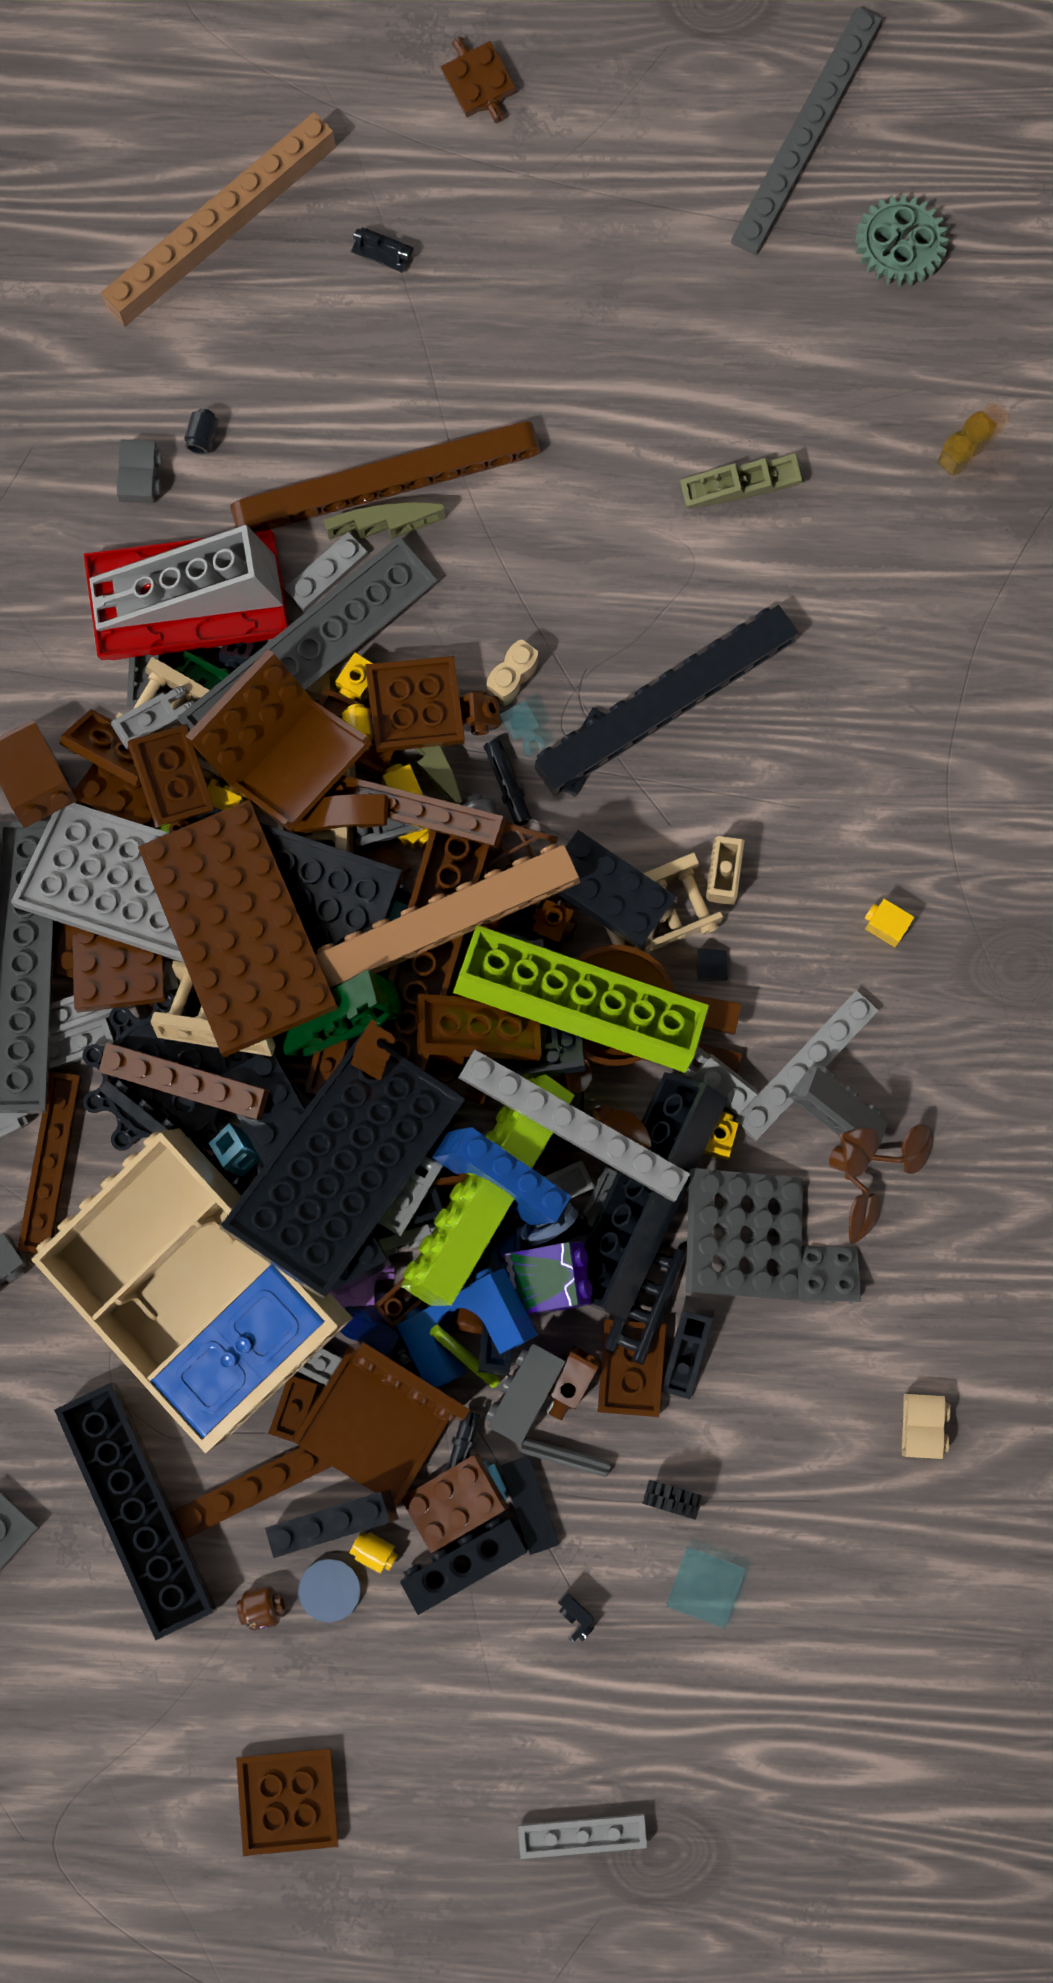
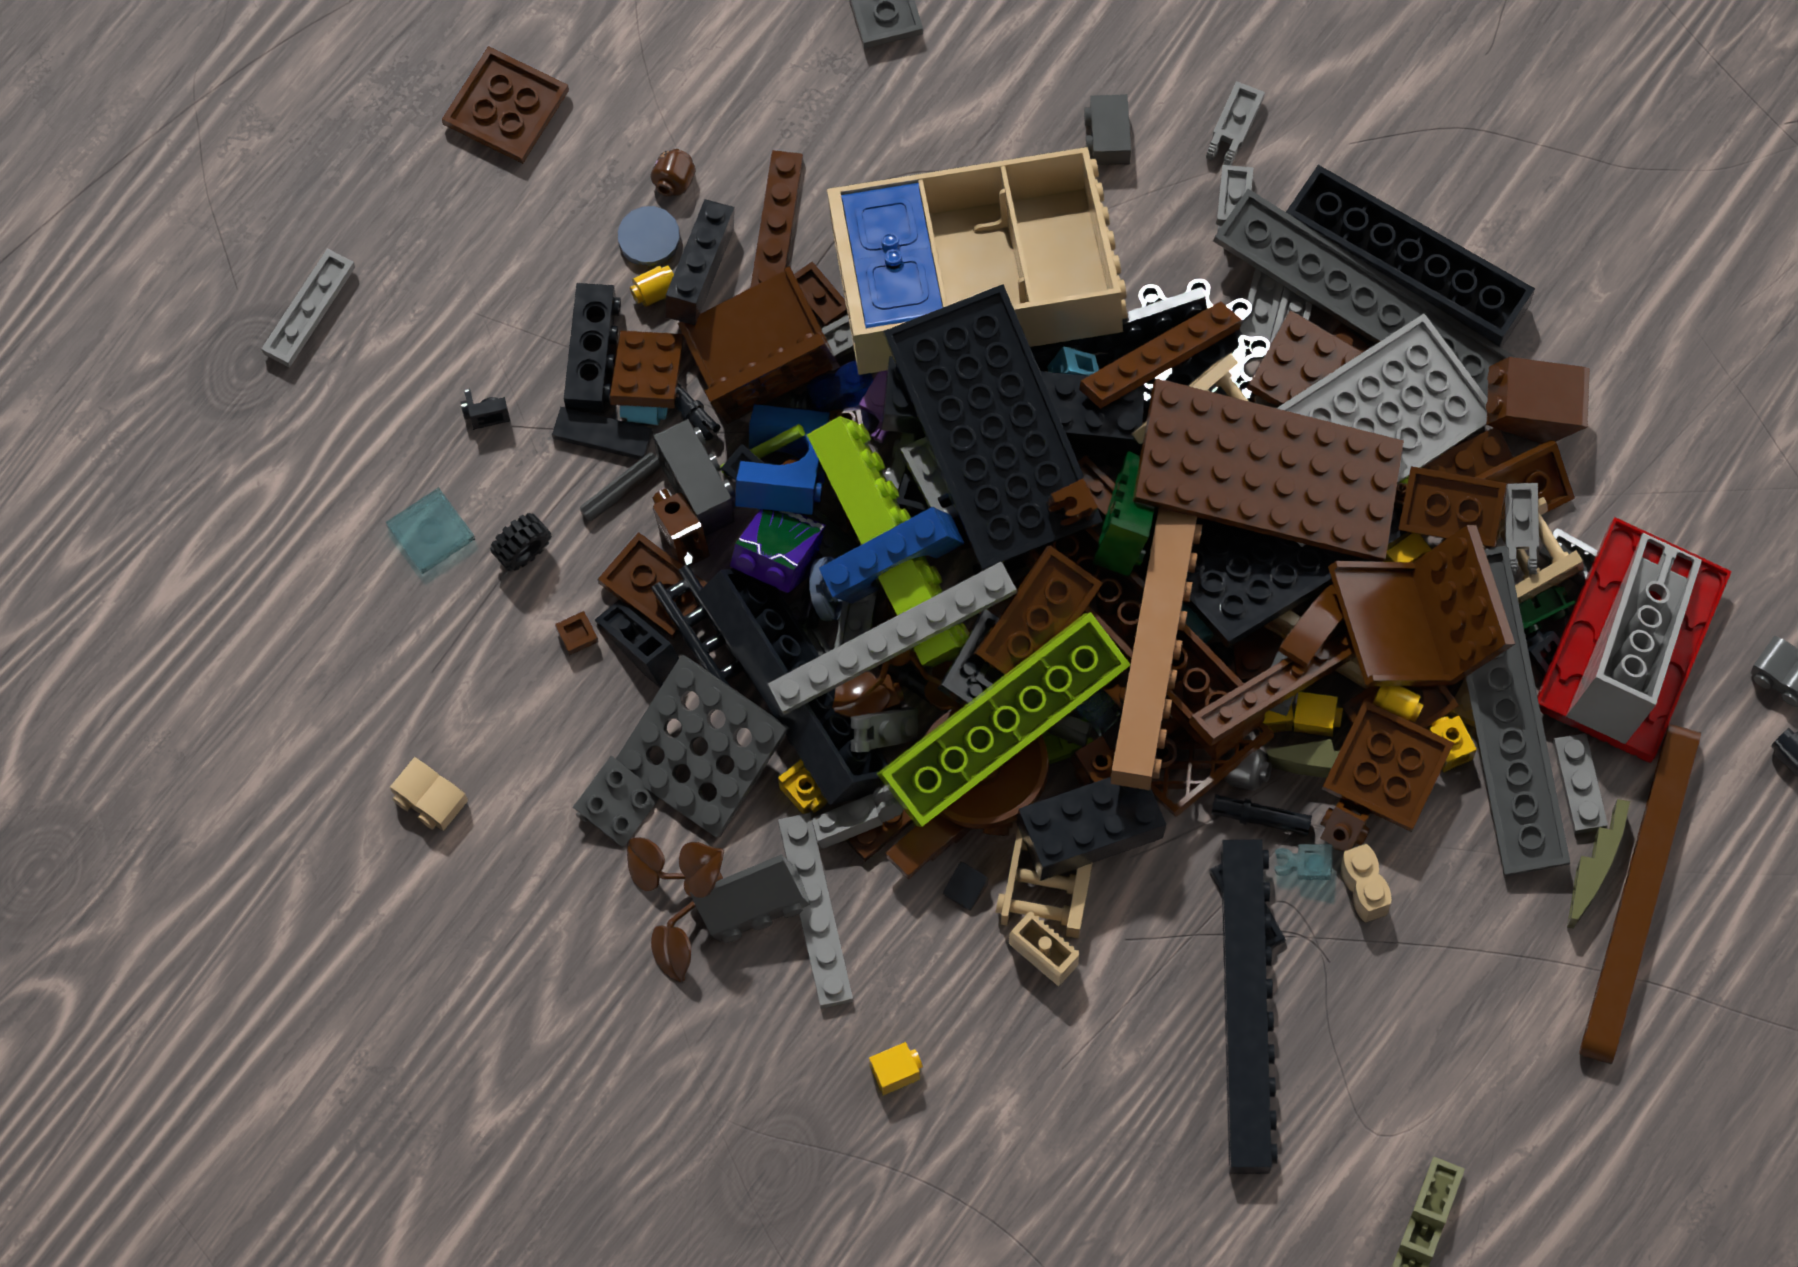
camera: 125 degrees right, 10 degrees down
(49, 1161) = (1172, 227): reddish brown plate -> none
(135, 1510) = (822, 121): black brick -> none
(638, 1099) = (884, 729): none -> dark grey plate
(713, 1403) = (576, 633): none -> reddish brown plate

